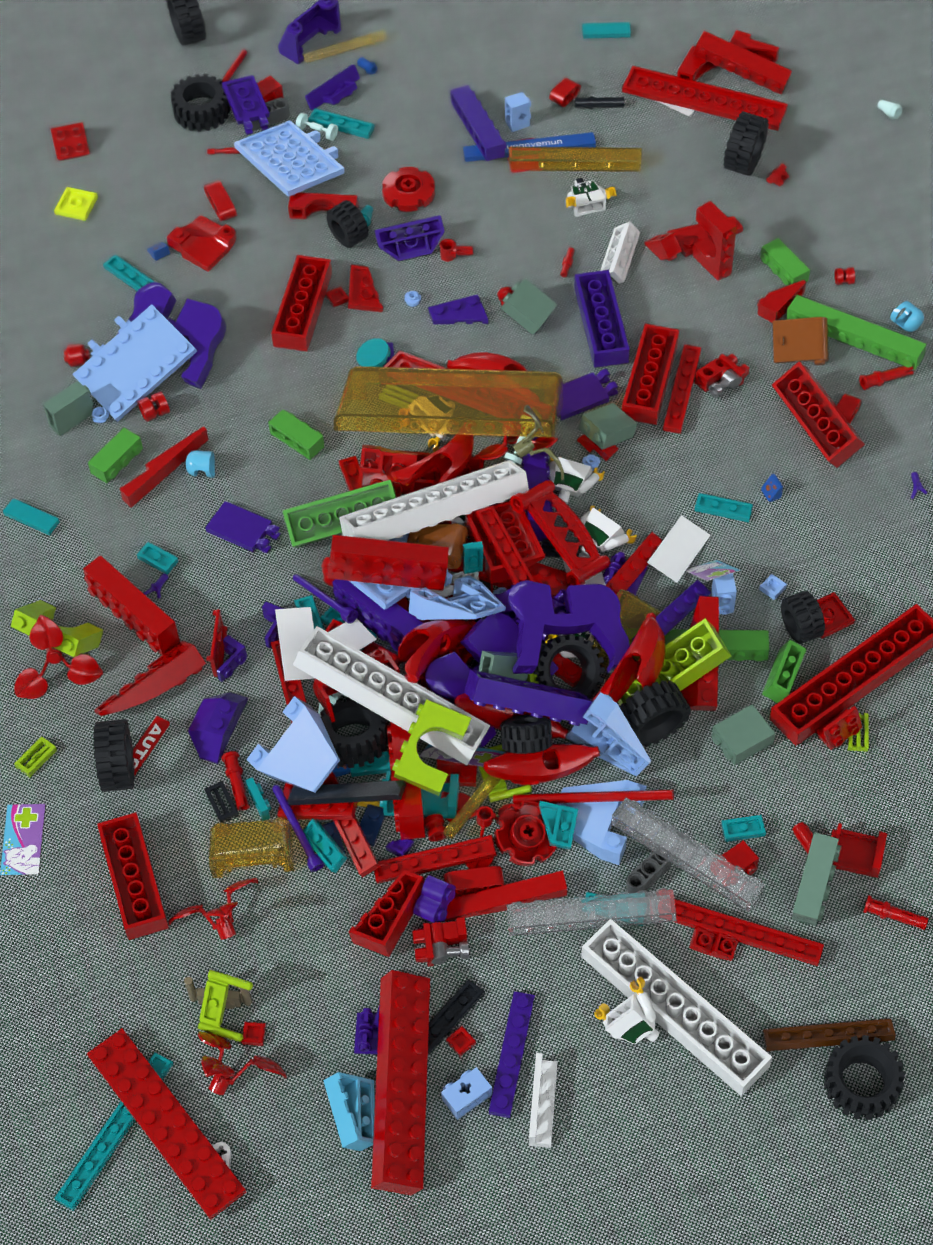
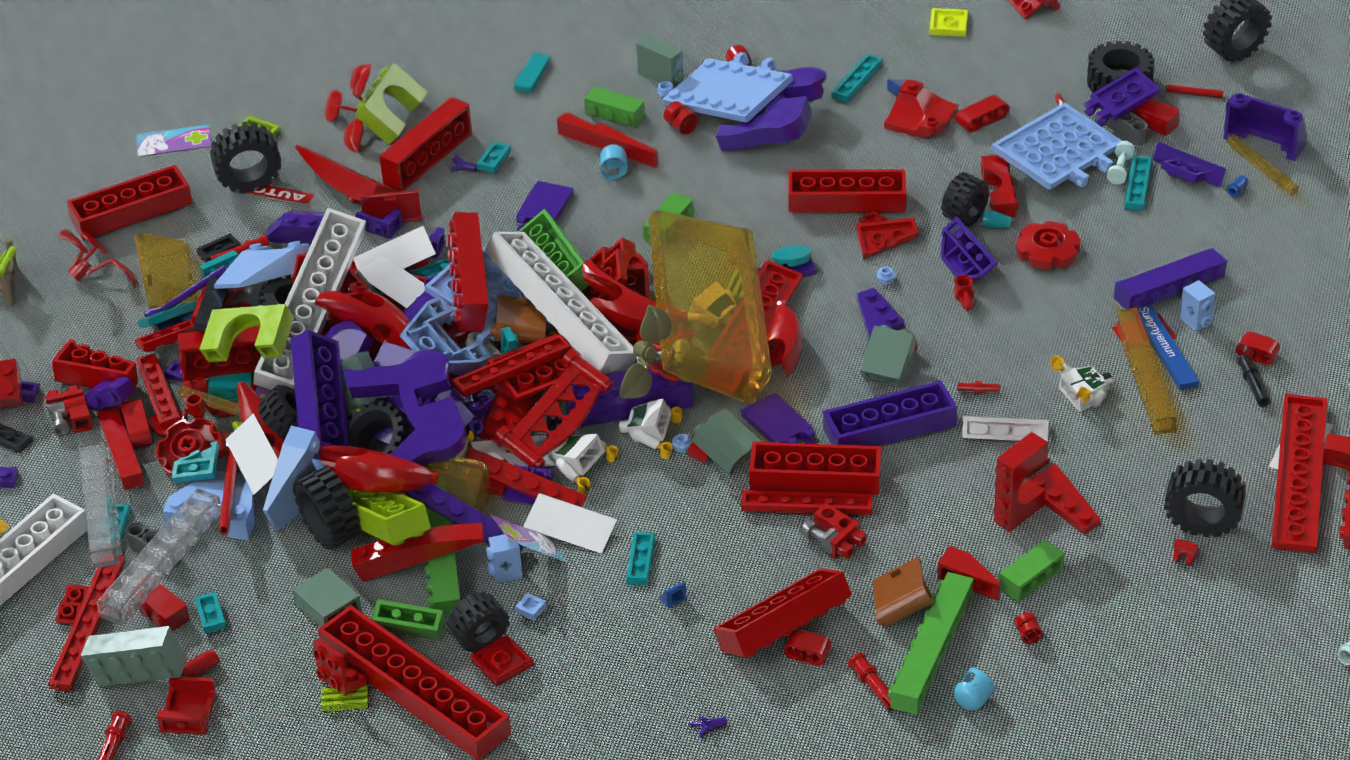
camera: 80 degrees right, 15 degrees down
(561, 772) = (253, 453): none -> white sticker

